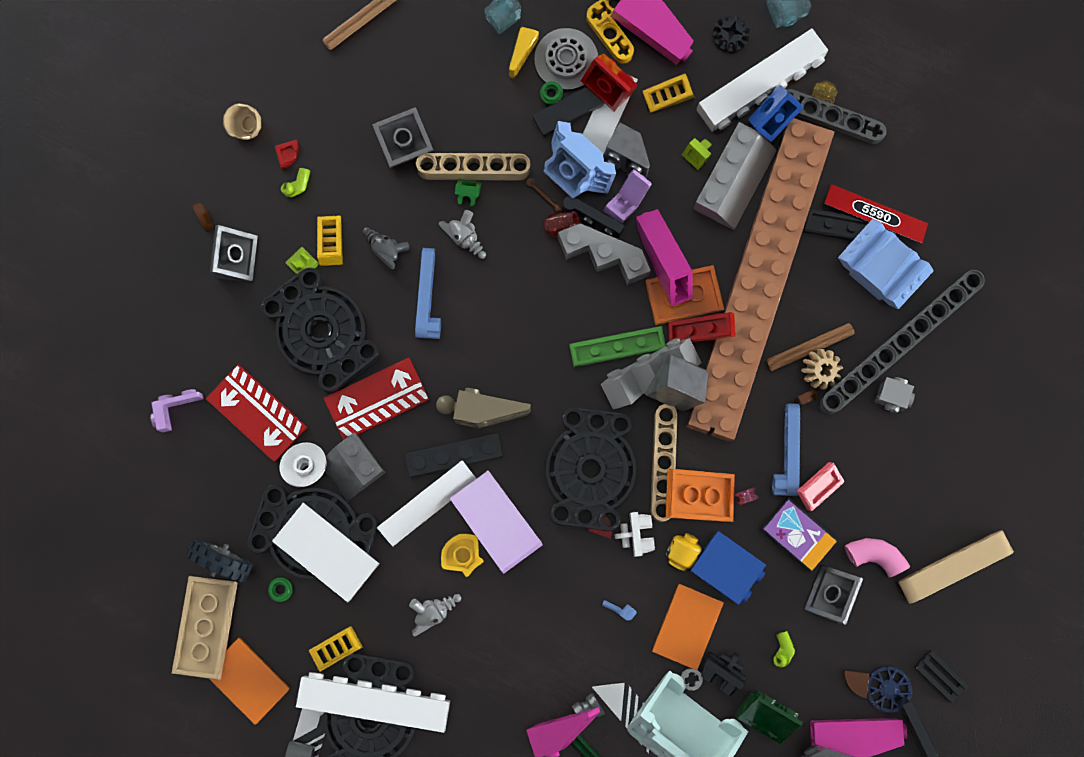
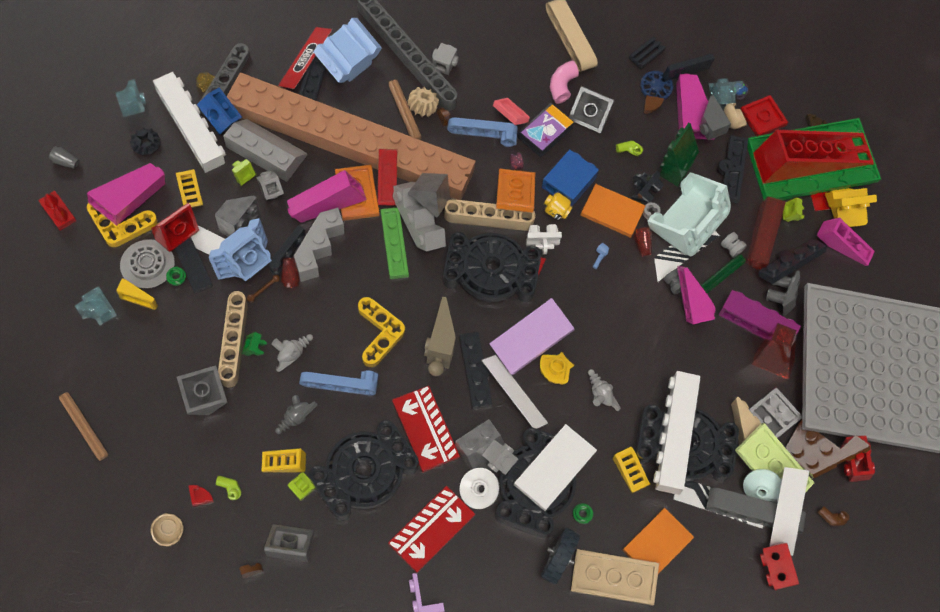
camera: 95 degrees left, 15 degrees down
(336, 485) = (500, 457): none -> light grey brick
(493, 345) = (387, 333): none -> yellow beam
(628, 198) = (273, 221): lavender bracket -> none
(644, 667) = (644, 240): none -> clear red cone
(678, 186) = (269, 185): none -> light grey brick

